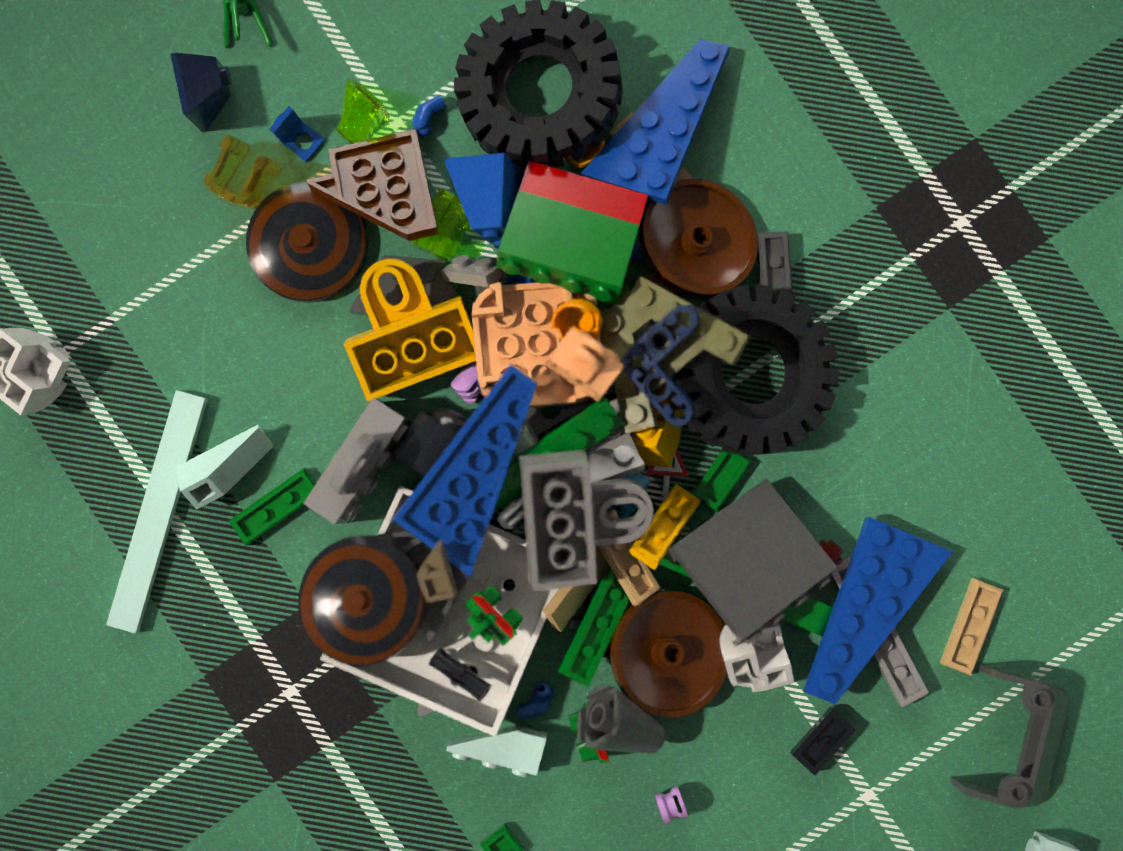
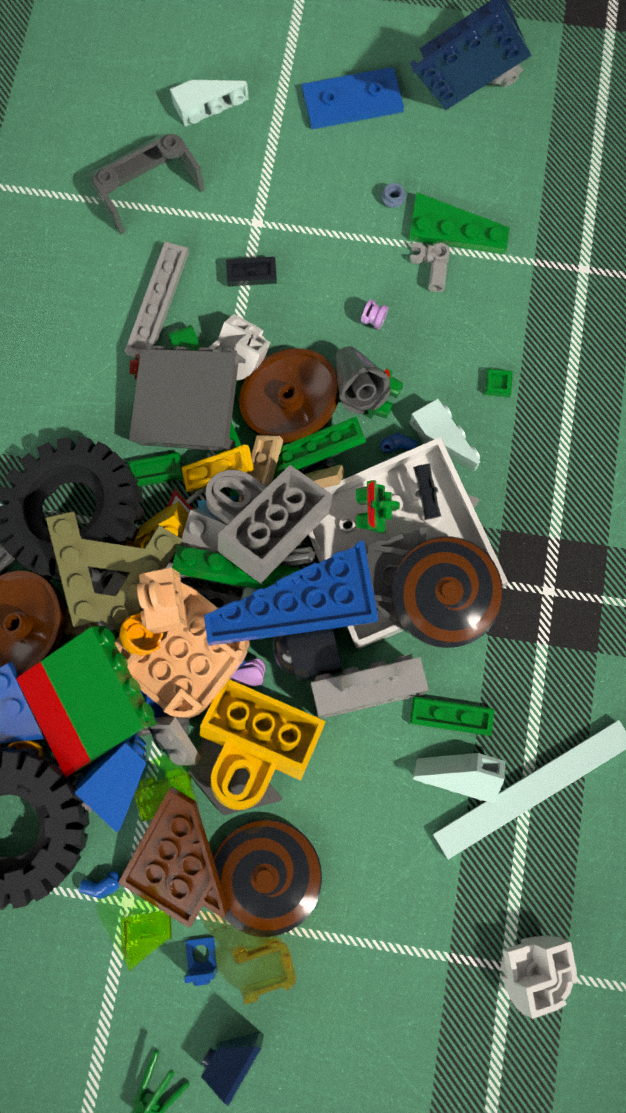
camera: 135 degrees left, 10 degrees down
(436, 576) = (384, 559): dark tan tile -> none
(652, 359) = (115, 564): dark blue beam -> none
(876, 592) = (133, 319): blue wing -> none
(971, 626) = (103, 256): tan tile -> none

